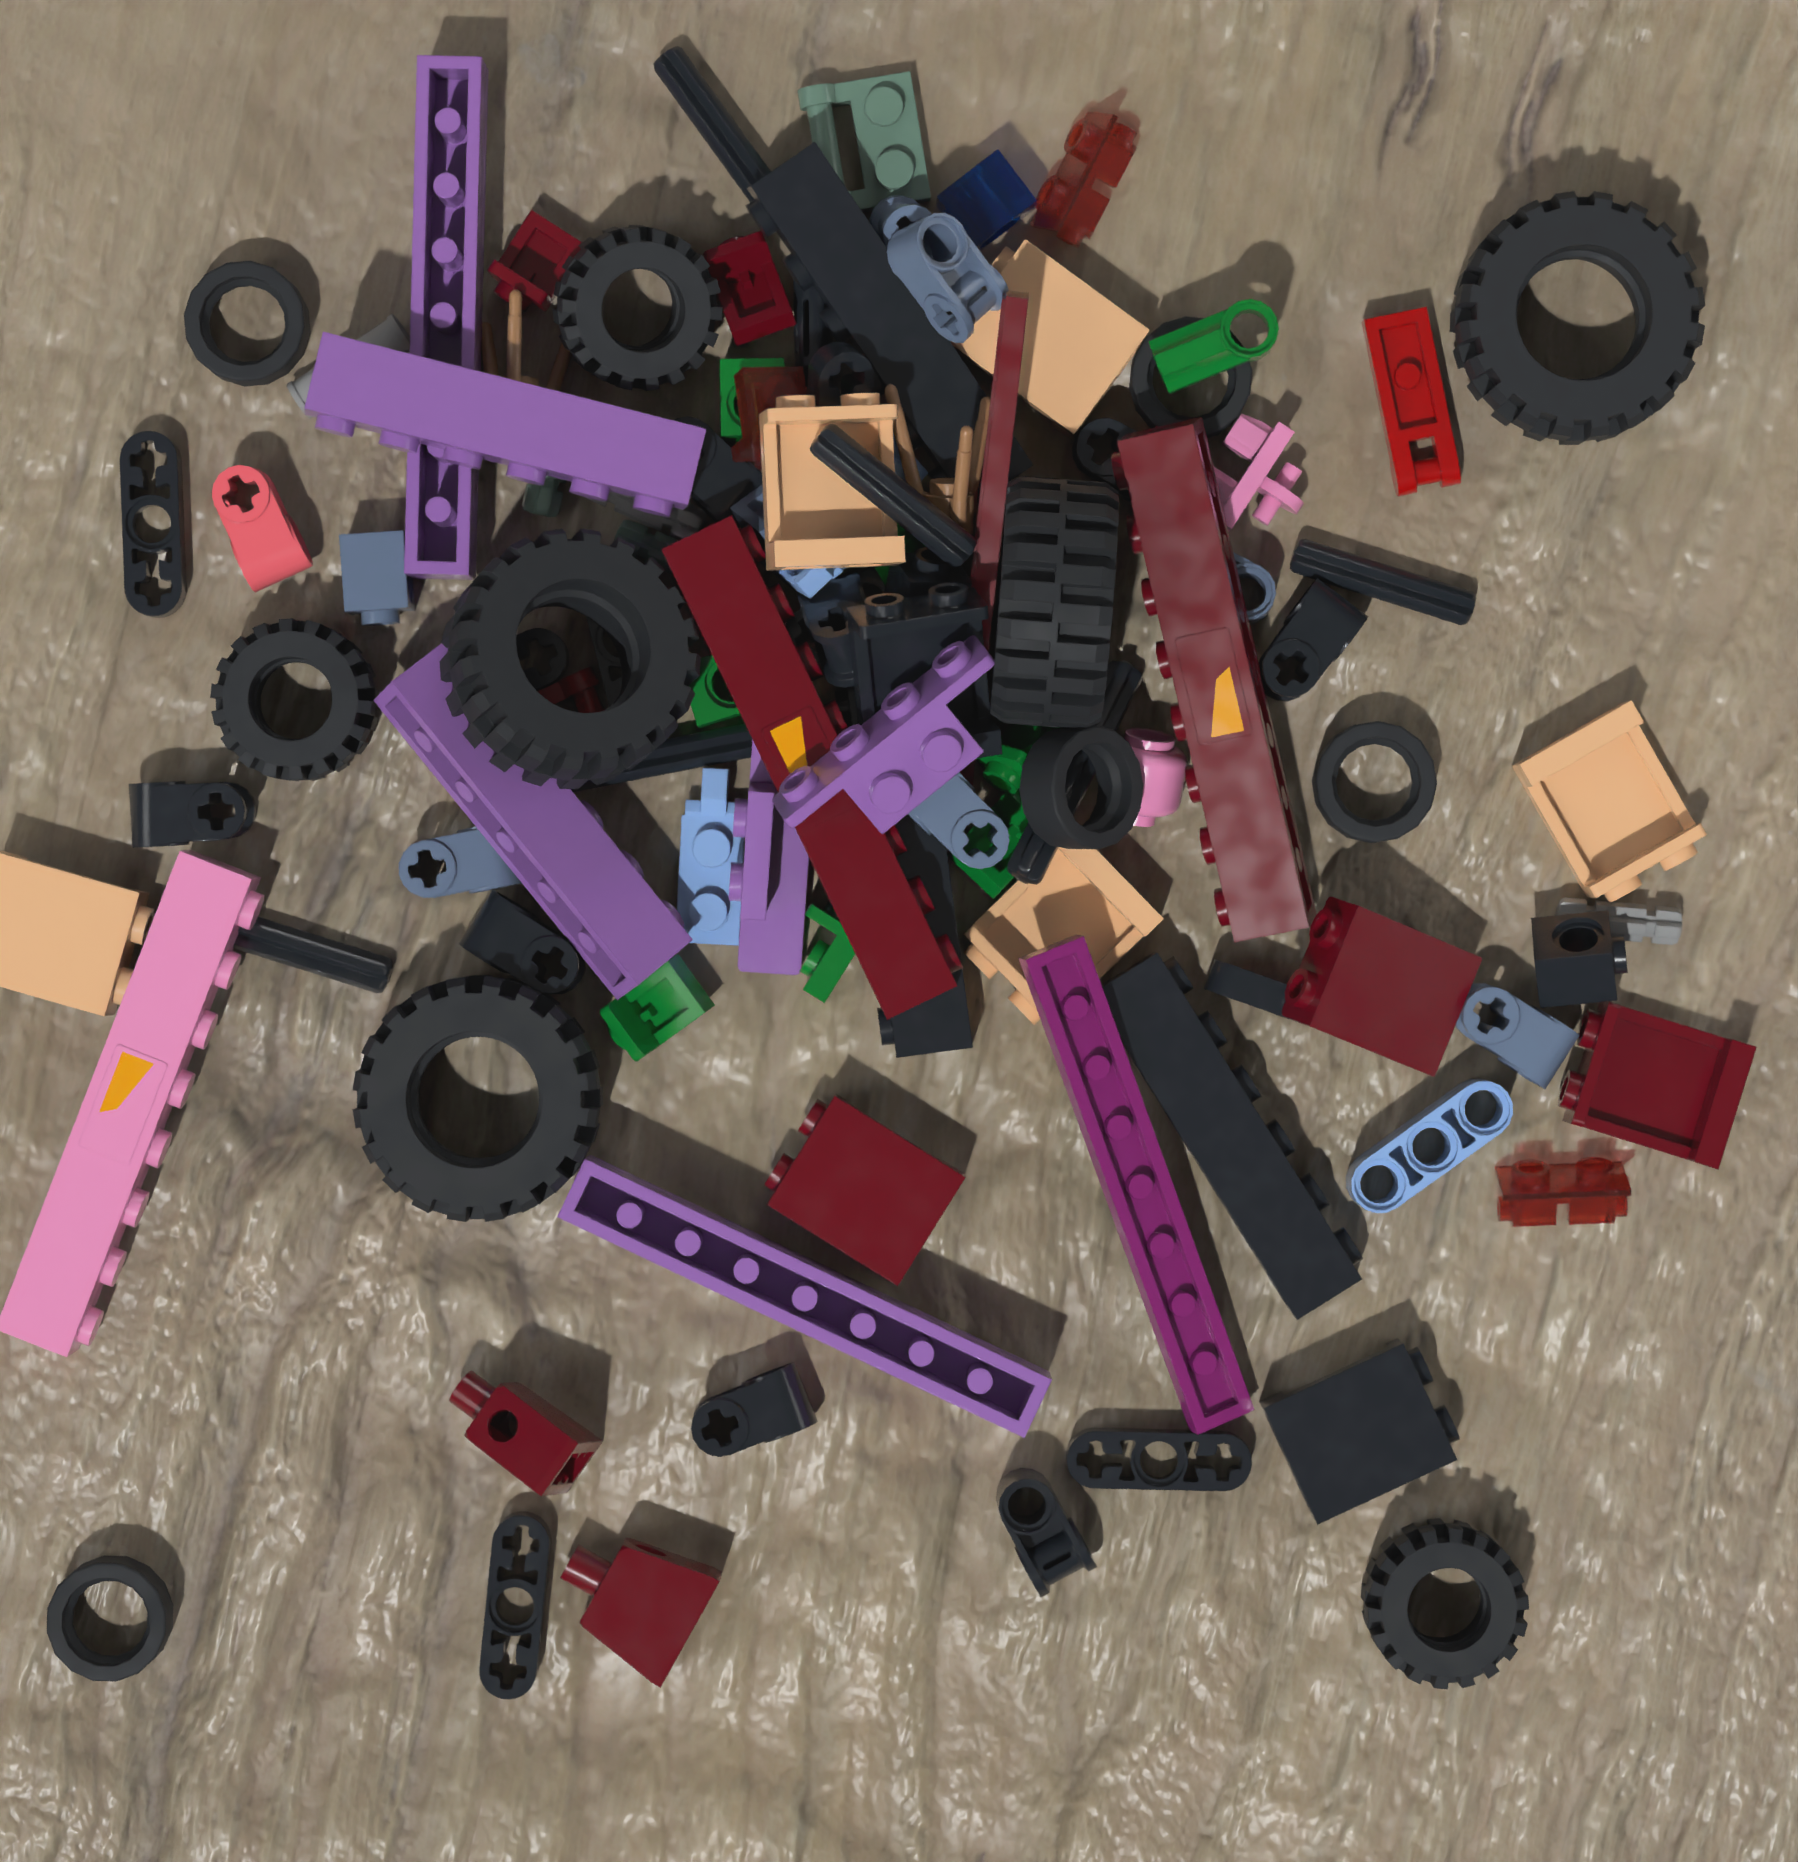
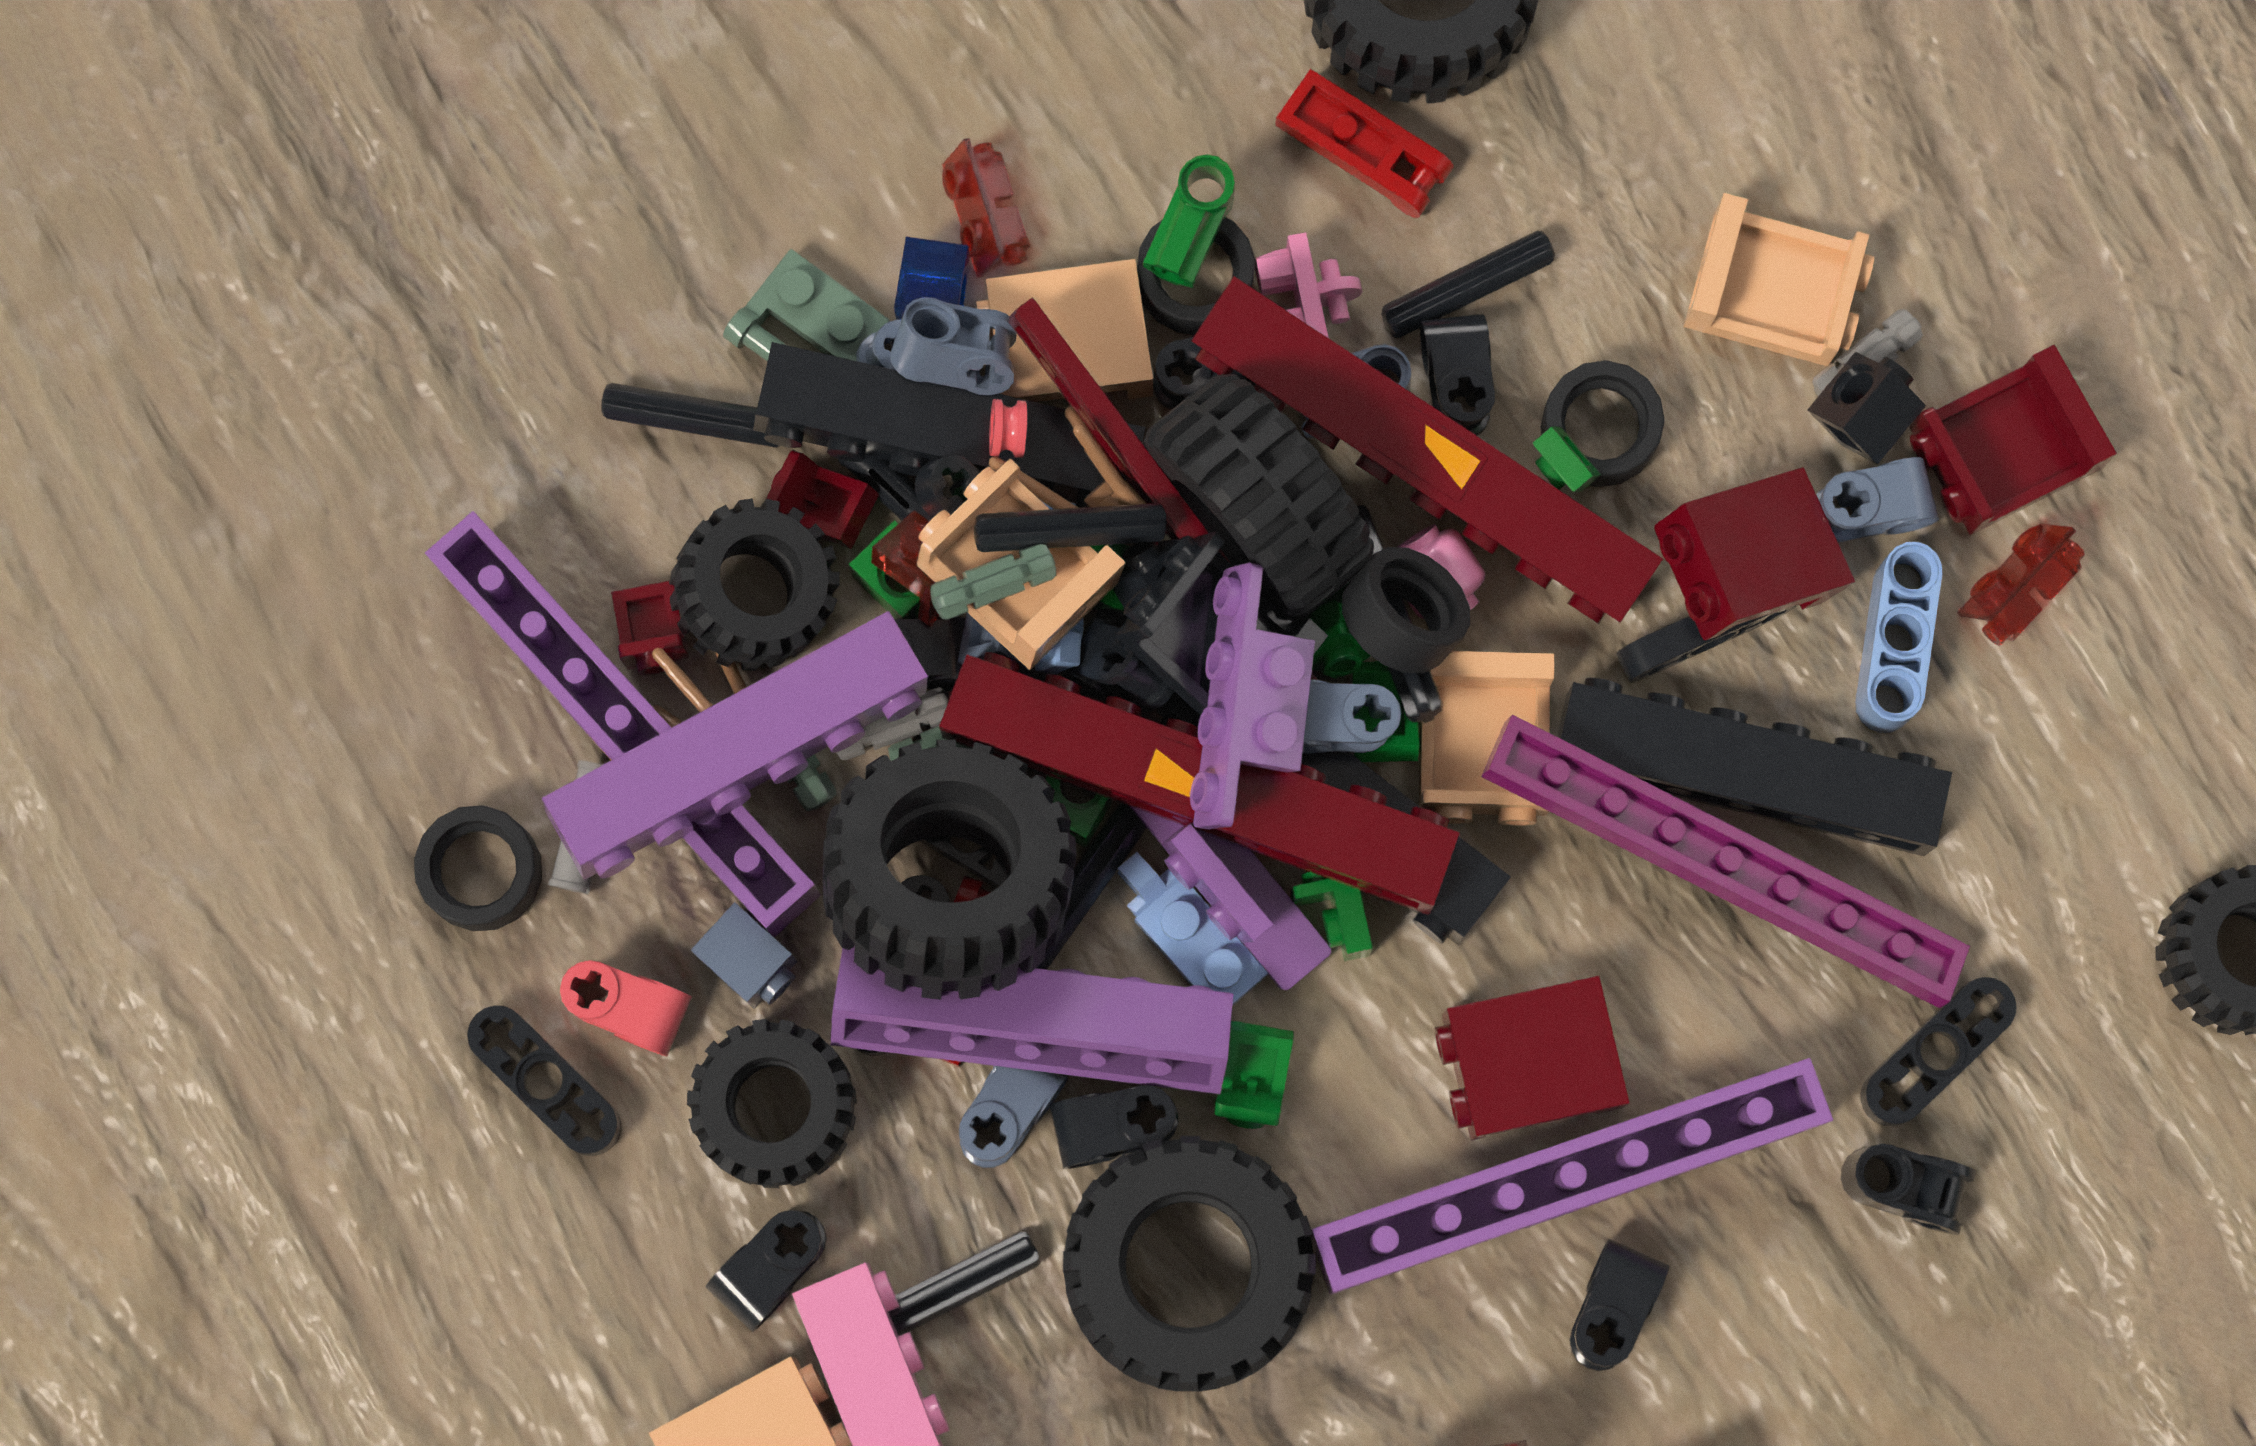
camera: 40 degrees left, 10 degrees down
(797, 483) = (993, 581): none -> sand green axle
(924, 374) = (1008, 428): none -> coral bush
(1309, 787) = (1563, 461): none -> green plate
(1361, 1430) = (2060, 887): black panel -> none

